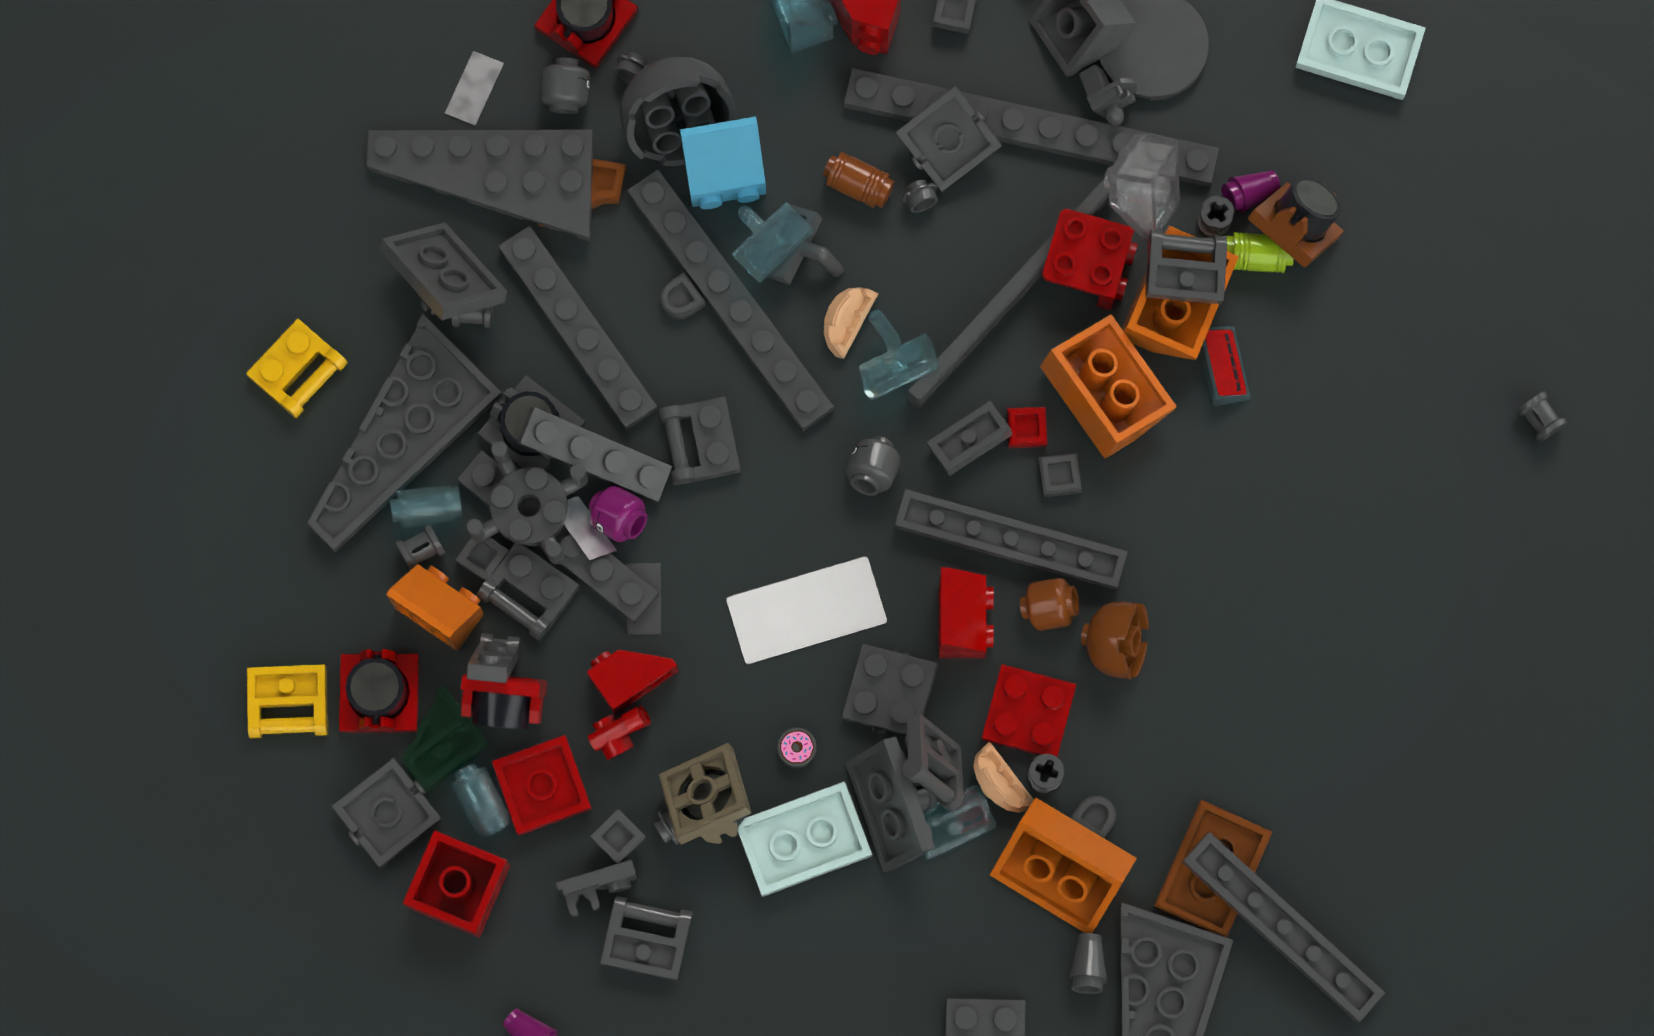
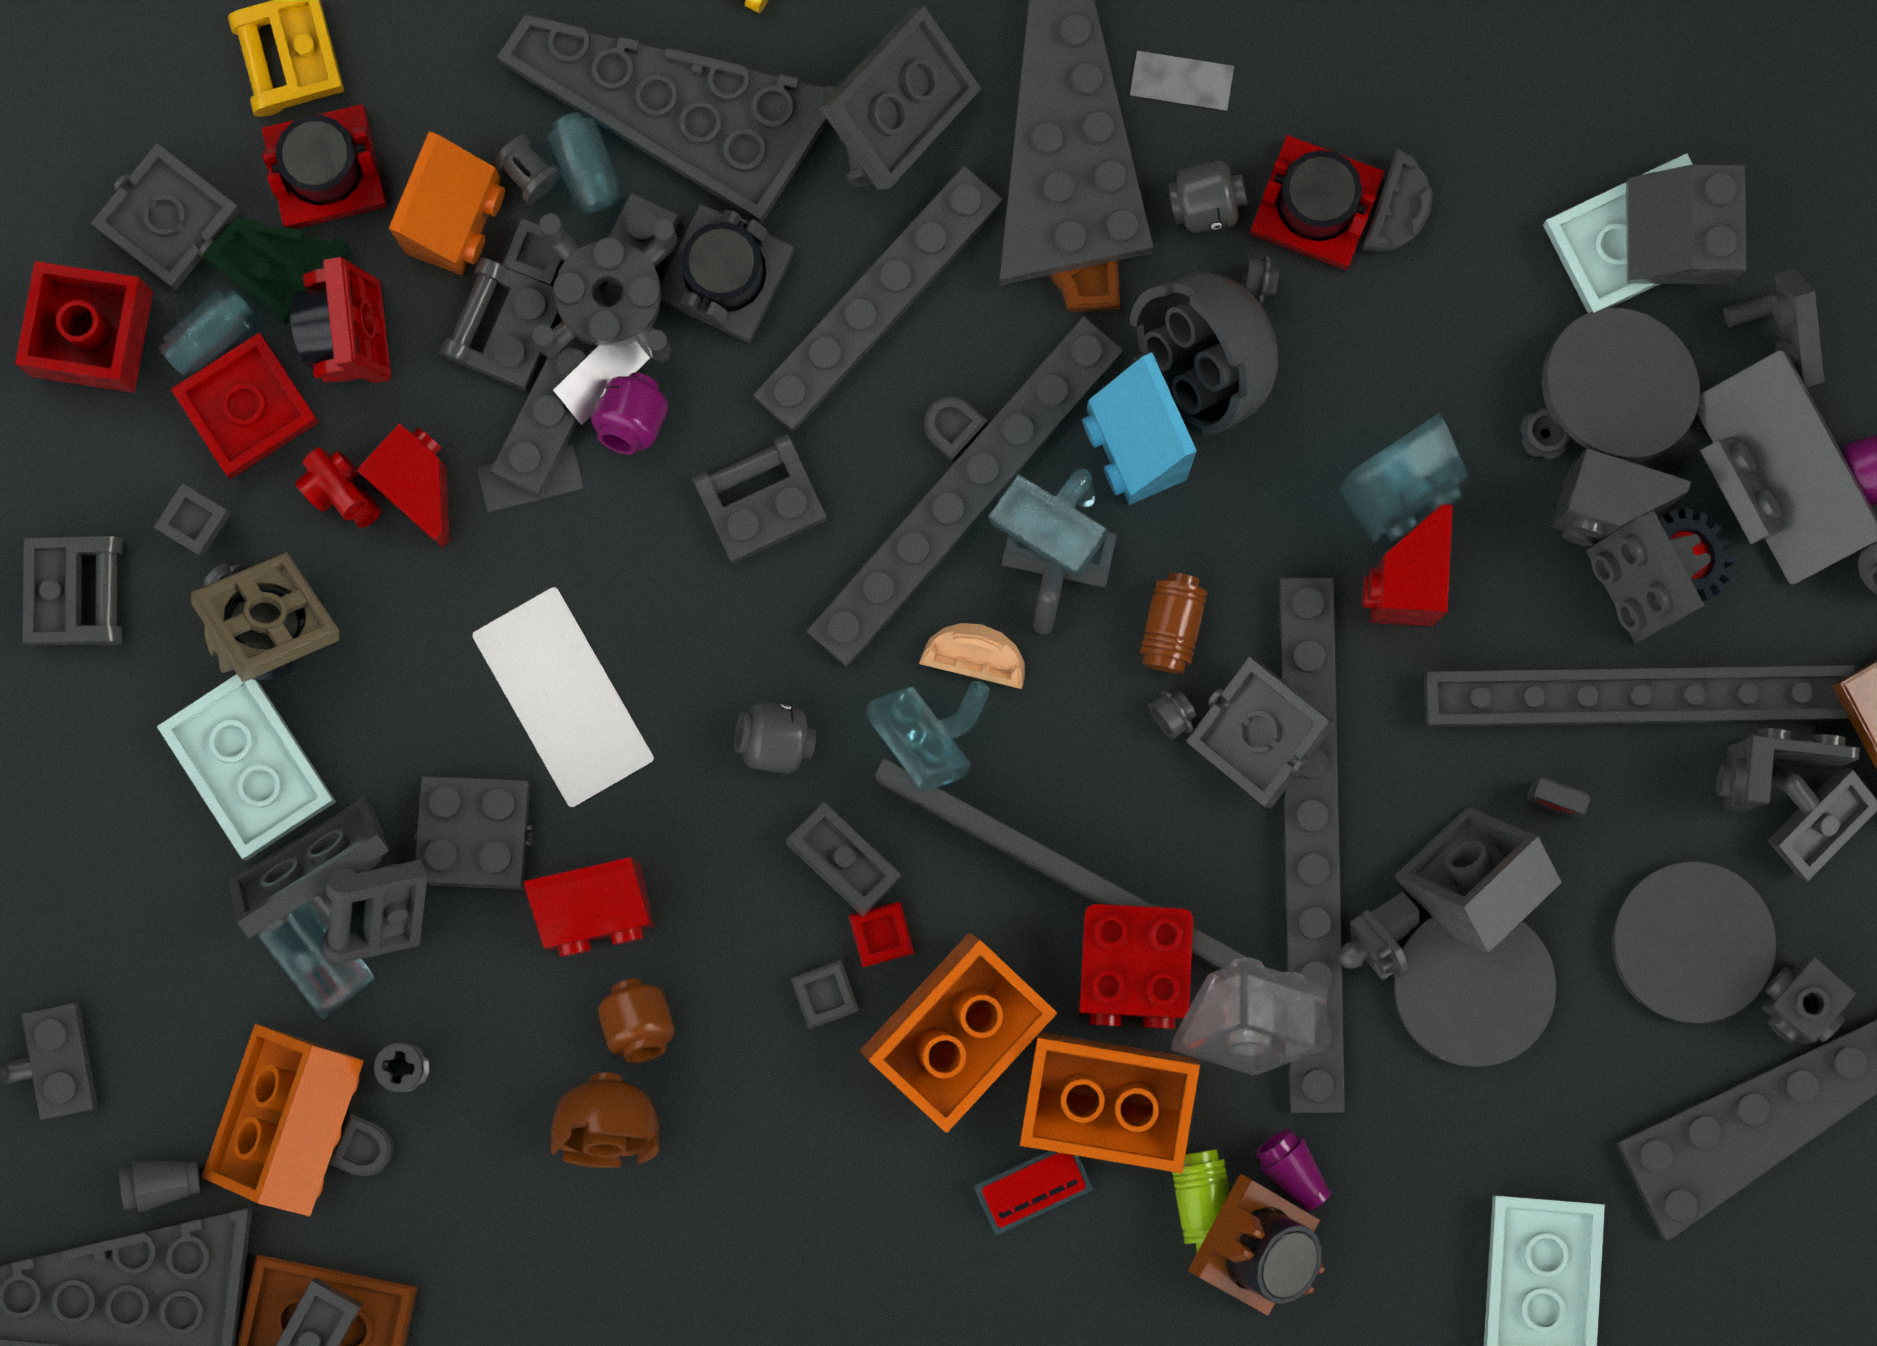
camera: 80 degrees right, 5 degrees up
(494, 658) = (383, 297): dark grey plate -> none
(596, 453) = (697, 360): dark grey plate -> none
(614, 877) = (126, 500): dark grey plate -> none
(797, 747) = (370, 727): tile -> none
(999, 781) = (380, 1007): light nougat plate -> none
(1010, 539) = (716, 948): dark grey plate -> none
(1028, 711) = (486, 1026): red plate -> none
(1186, 278) = (1124, 1106): dark grey plate -> none
(1216, 206) = (1224, 1129): dark grey bush -> none

